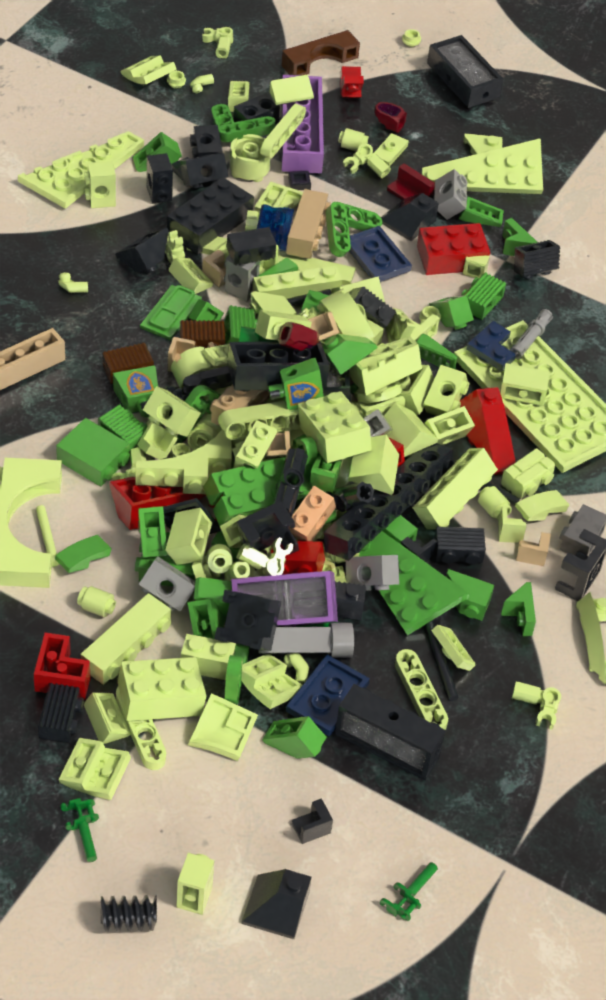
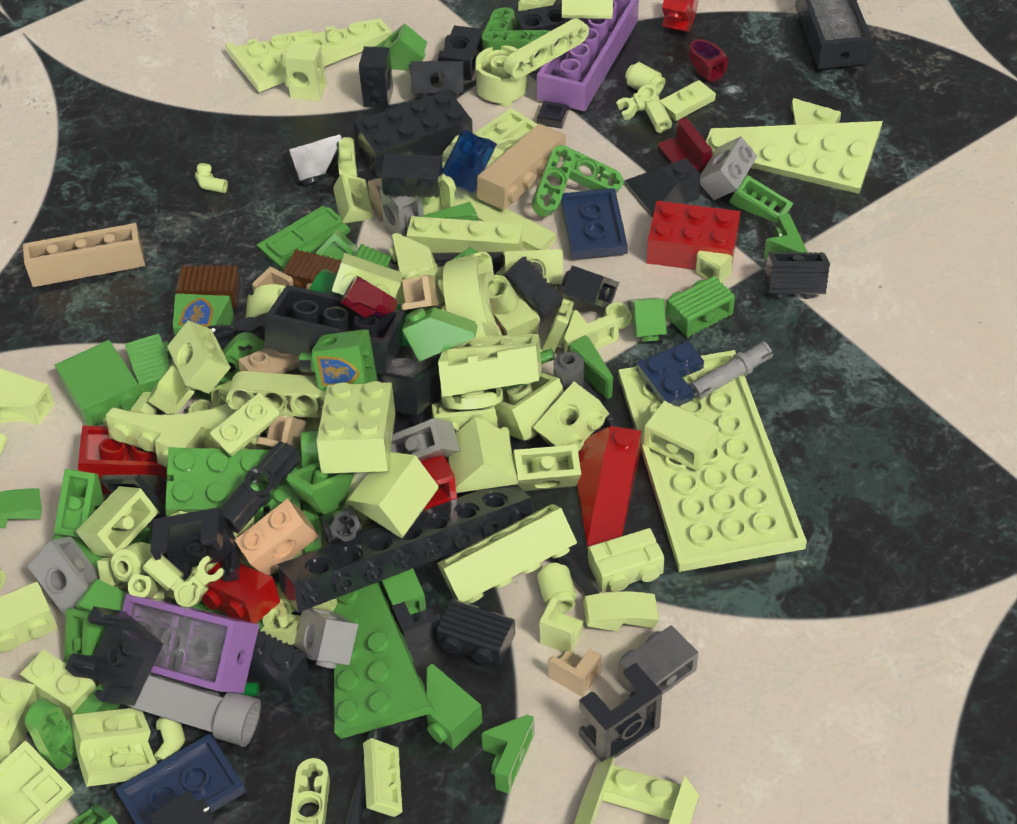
camera: 30 degrees right, 0 degrees up
(407, 298) = (589, 286): none -> black brick
(431, 356) = (569, 369): none -> dark grey brick

